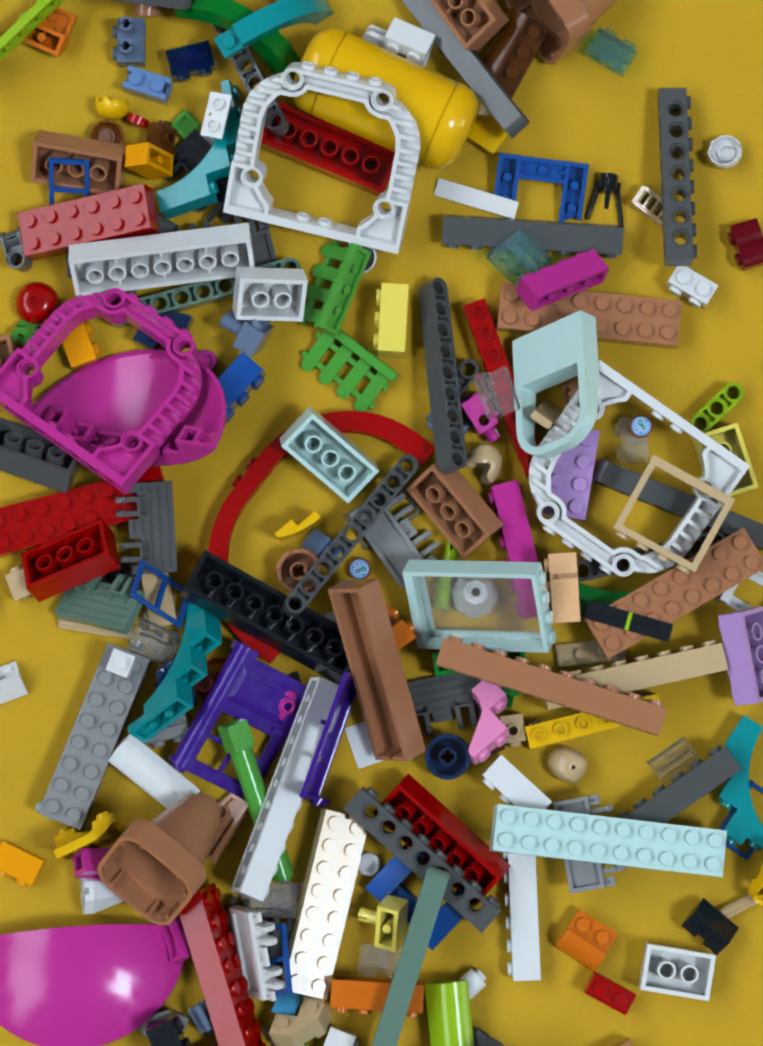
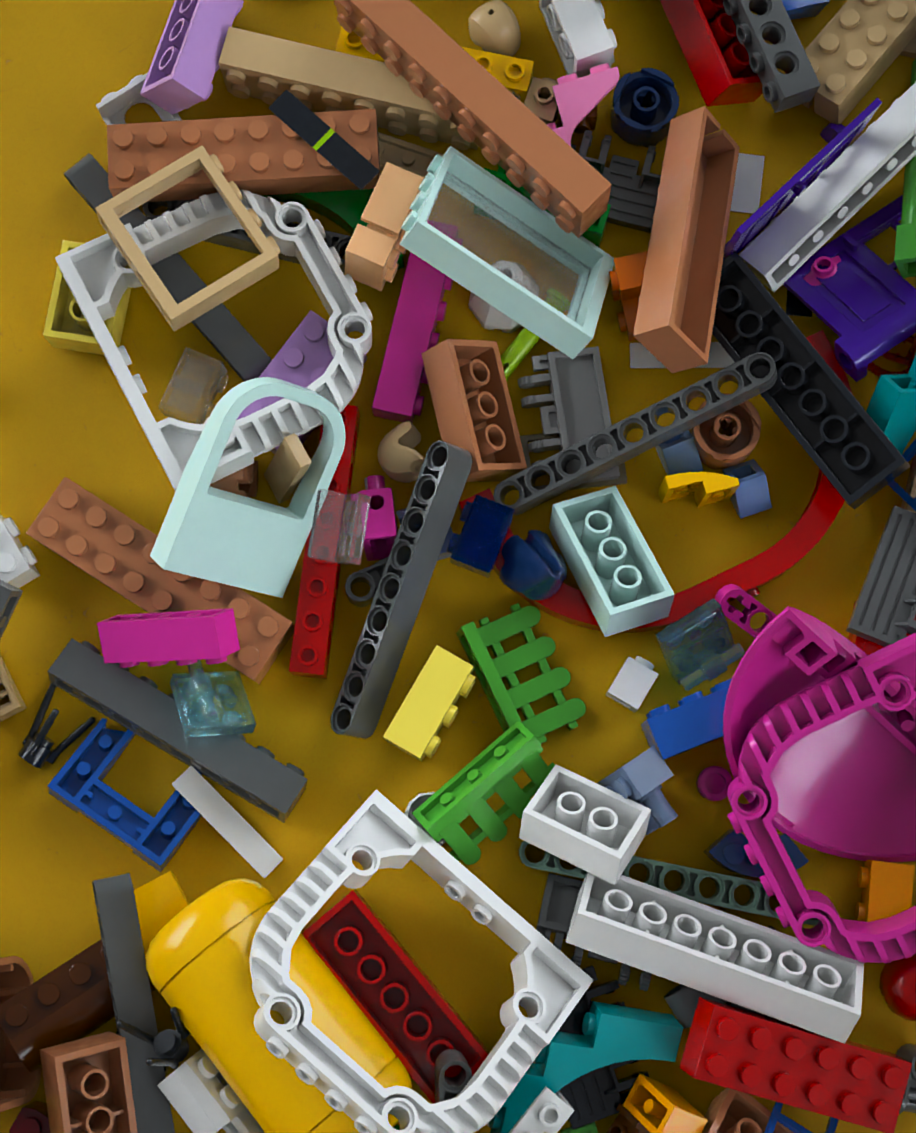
camera: 160 degrees left, 5 degrees down
(233, 472) = (751, 605): none -> dark pink beam
(252, 432) = (699, 645): none -> clear light blue plate
(268, 545) = (753, 491): none -> medium blue brick
(281, 394) = (632, 683): none -> white brick
(359, 568) = (638, 398): tile -> none
(369, 864) = (808, 29): white tile -> none
(372, 430) = (532, 566): none -> dark blue hat
(412, 431) = (481, 535): none -> clear blue brick
(440, 57) = (168, 1045): none -> black plant
(640, 426) = (172, 394): tile -> none
(724, 401) = (48, 371): lime beam -> none

